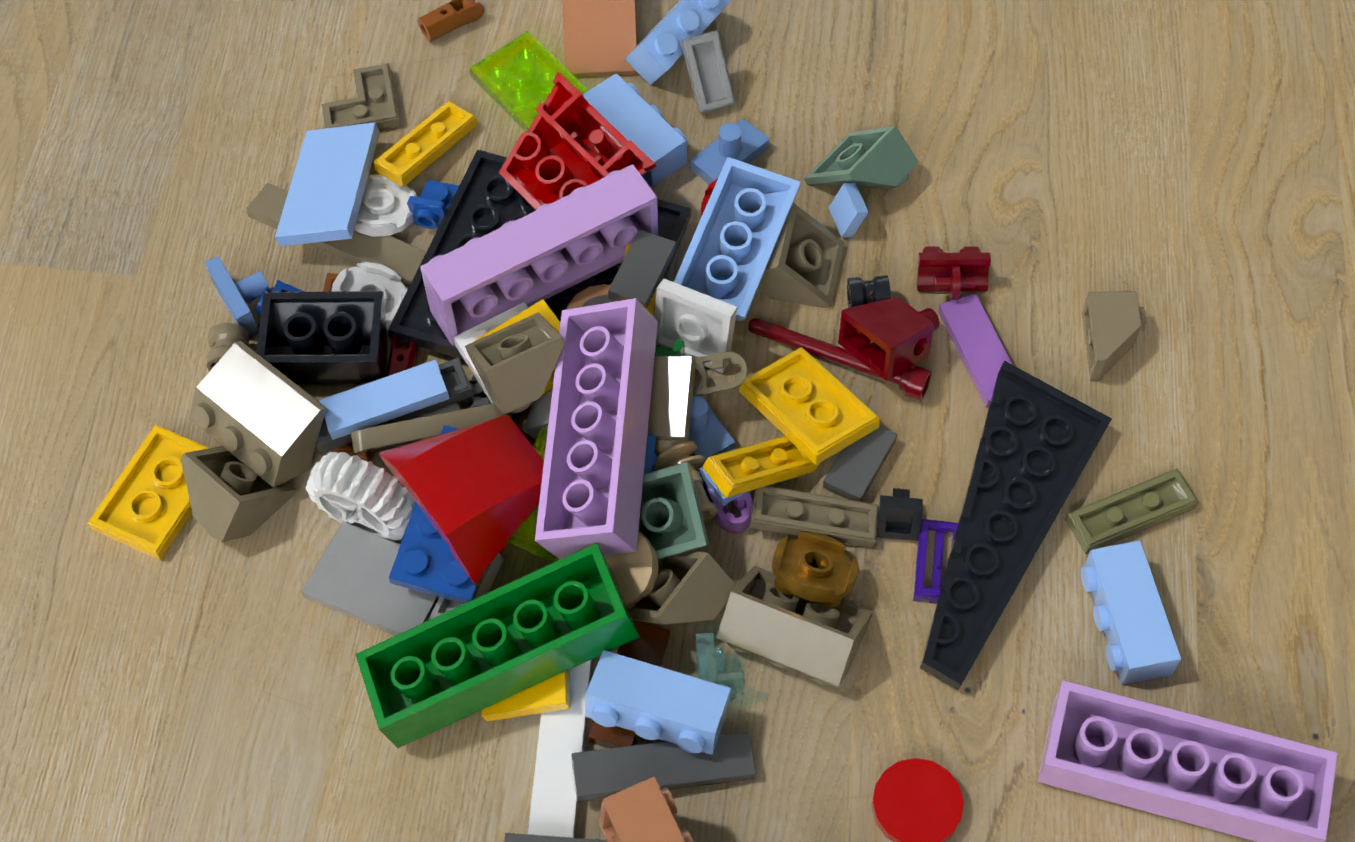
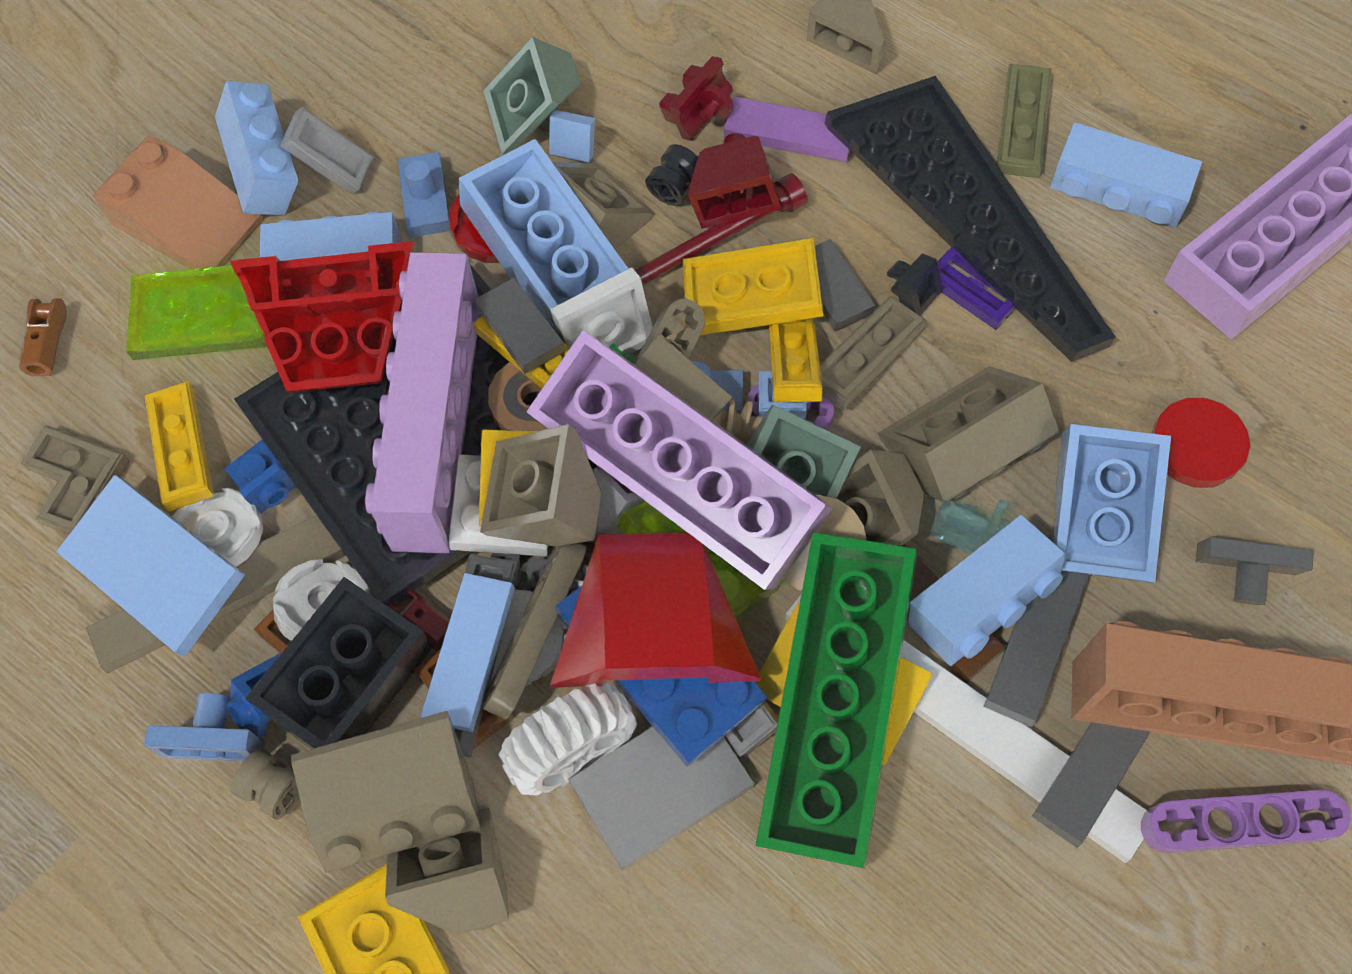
camera: 55 degrees left, 5 degrees up
(801, 755) = (1110, 501): none -> light blue slope
(823, 585) = (928, 380): pearl gold plate -> none

